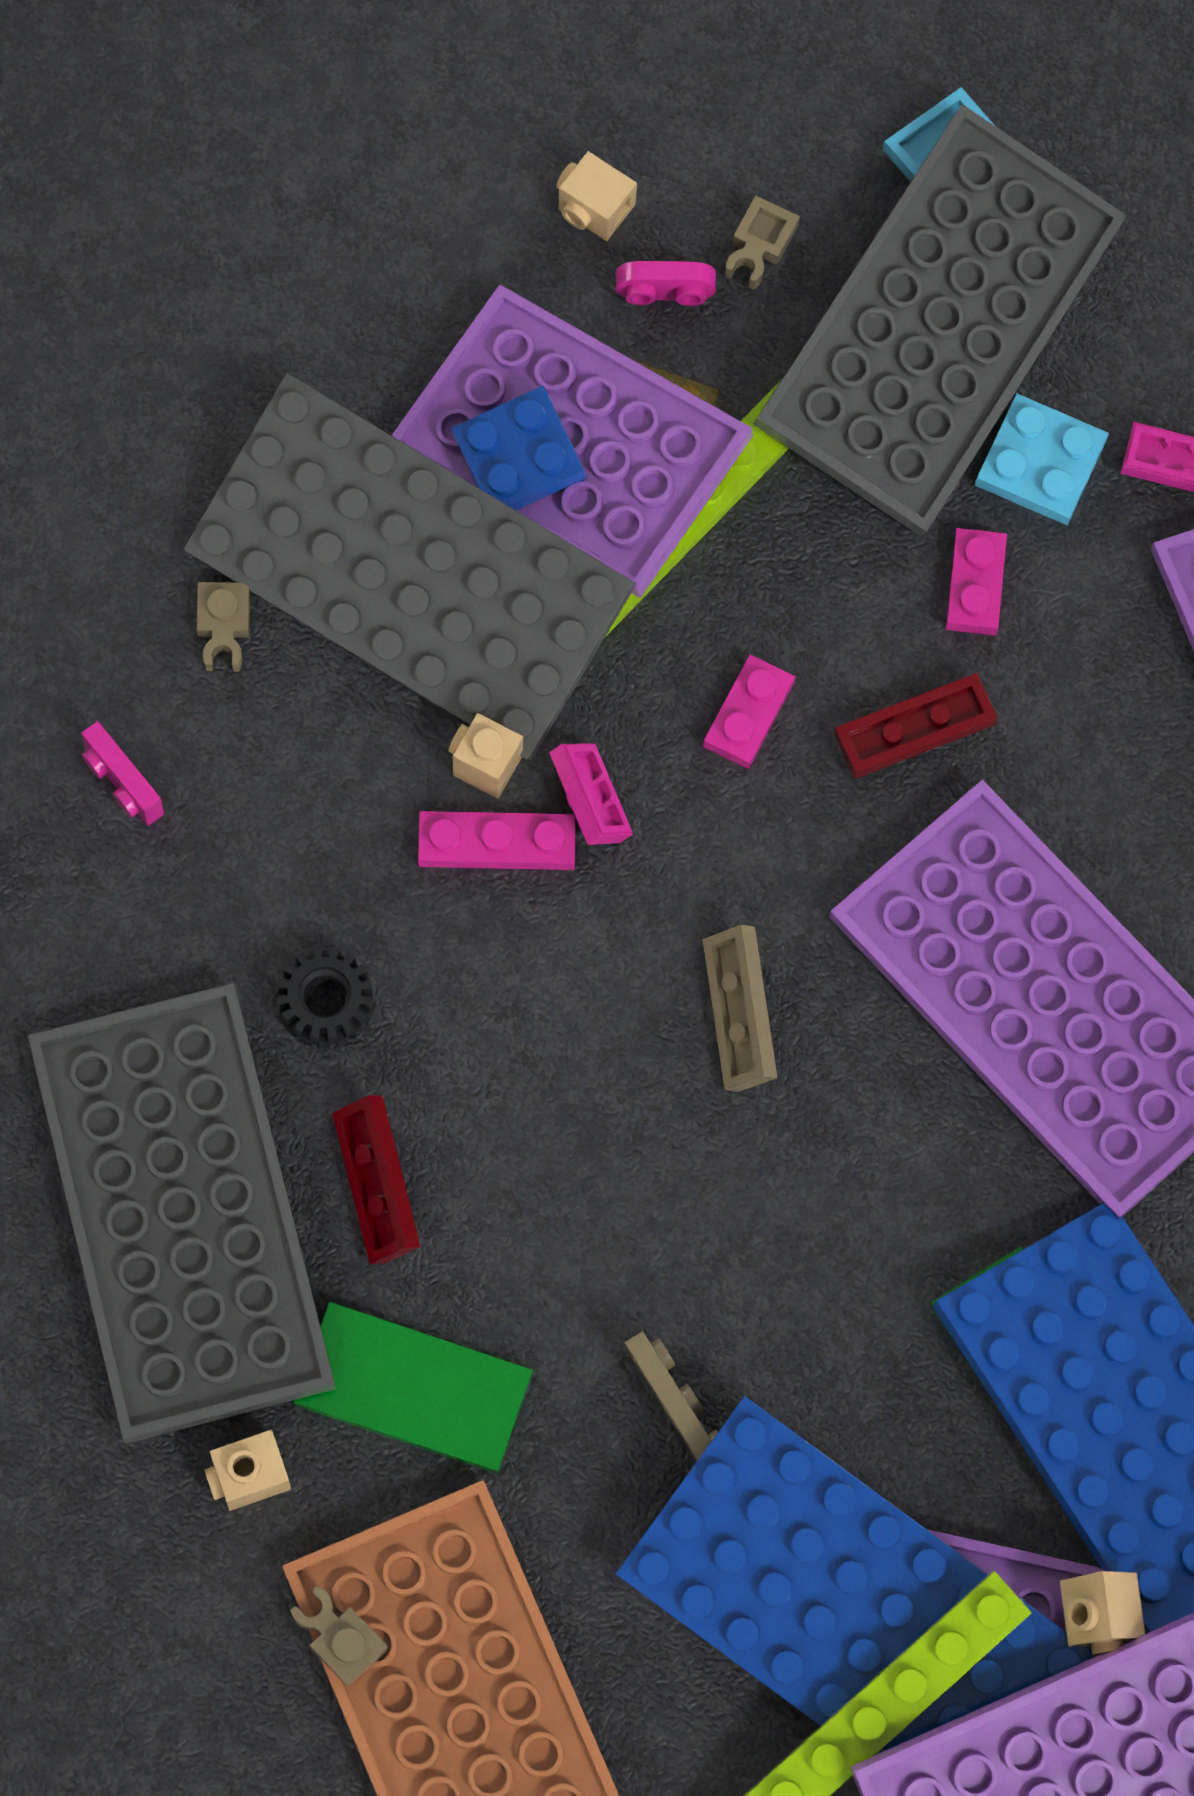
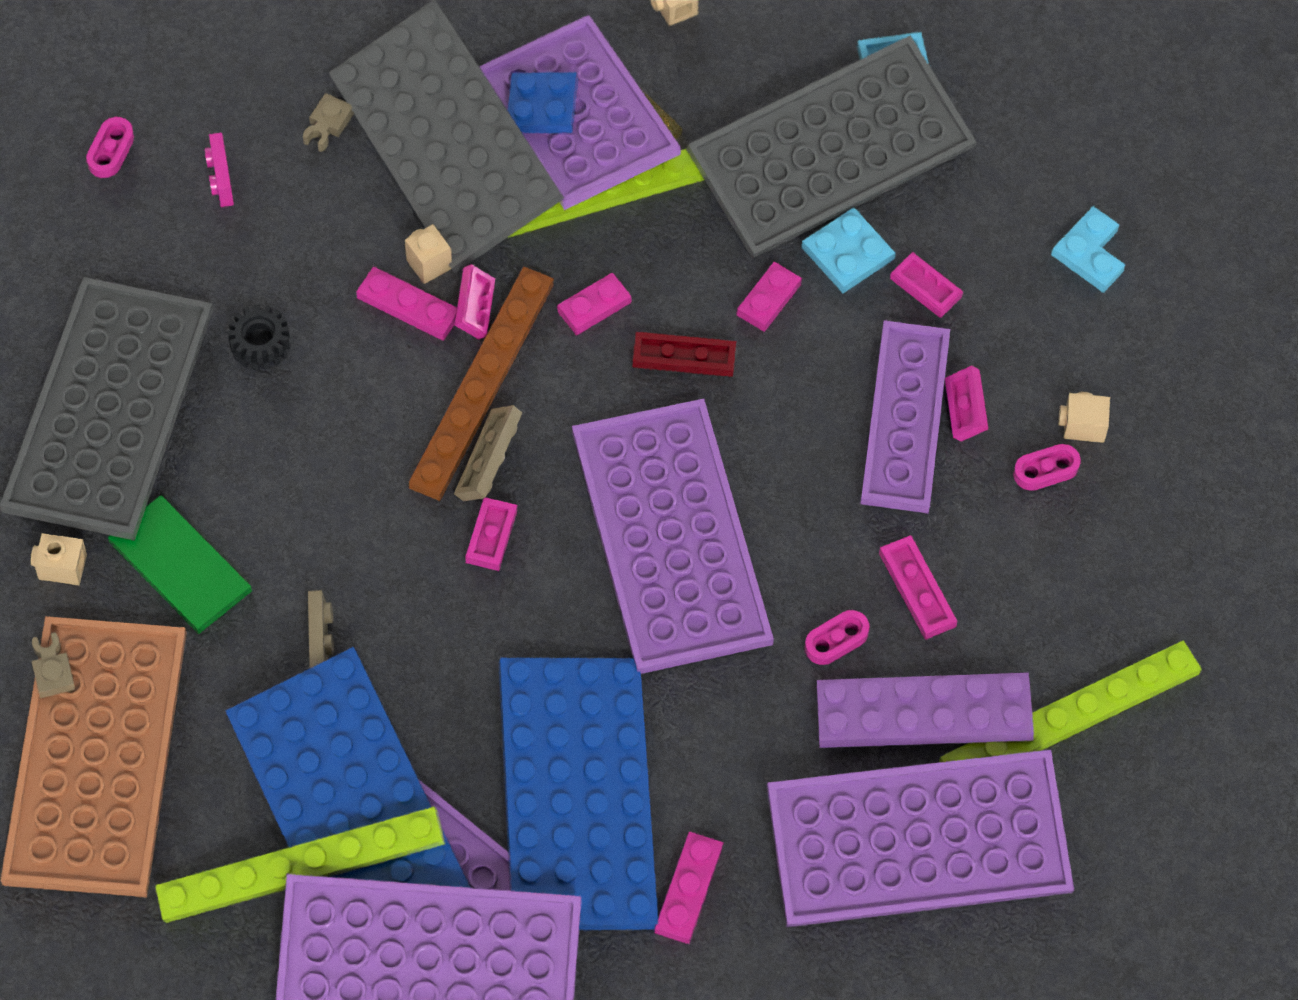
camera: 30 degrees right, 10 degrees down
(376, 1179) = (226, 443): dark red plate -> none
(665, 280) = (686, 57): dark pink plate -> none
(666, 908) = (481, 384): none -> dark orange plate
(761, 236) = (756, 59): dark tan plate -> none
(811, 1123) = (491, 534): none -> dark pink plate
(1102, 1610) = (489, 865): tan brick -> none

